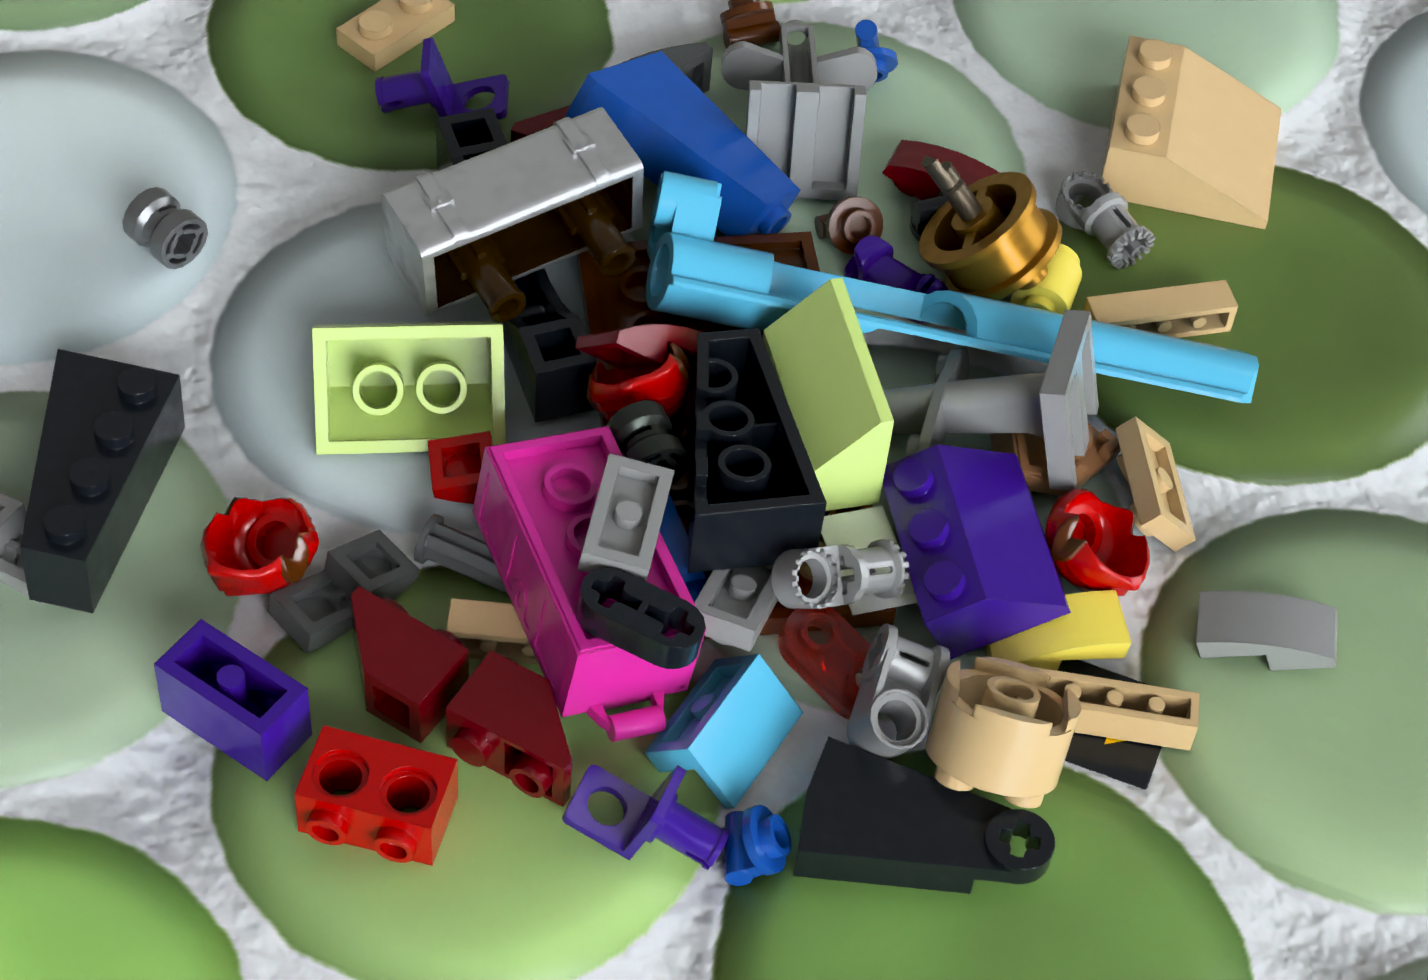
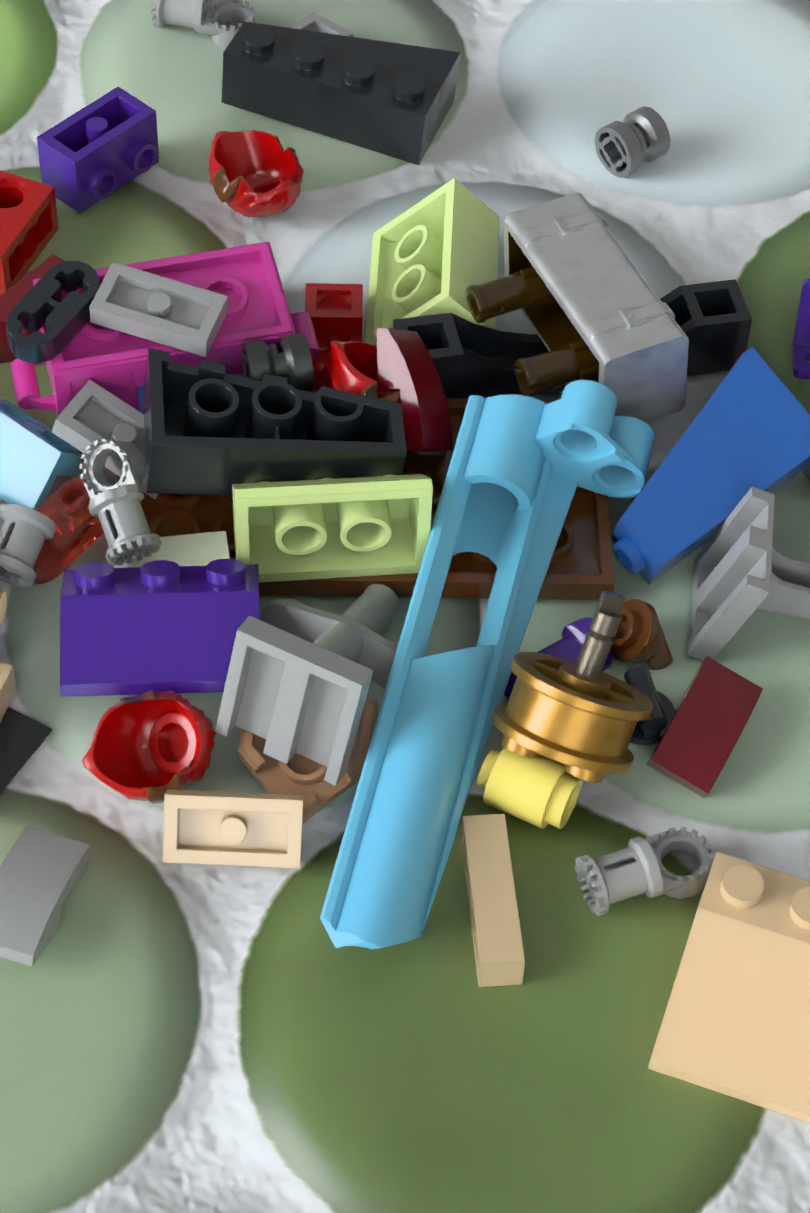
camera: 100 degrees right, 0 degrees up
(320, 605) = (208, 224): dark grey slope -> none
(405, 665) = (128, 237): dark red slope -> none
(1089, 632) = (56, 726): light yellow slope -> none

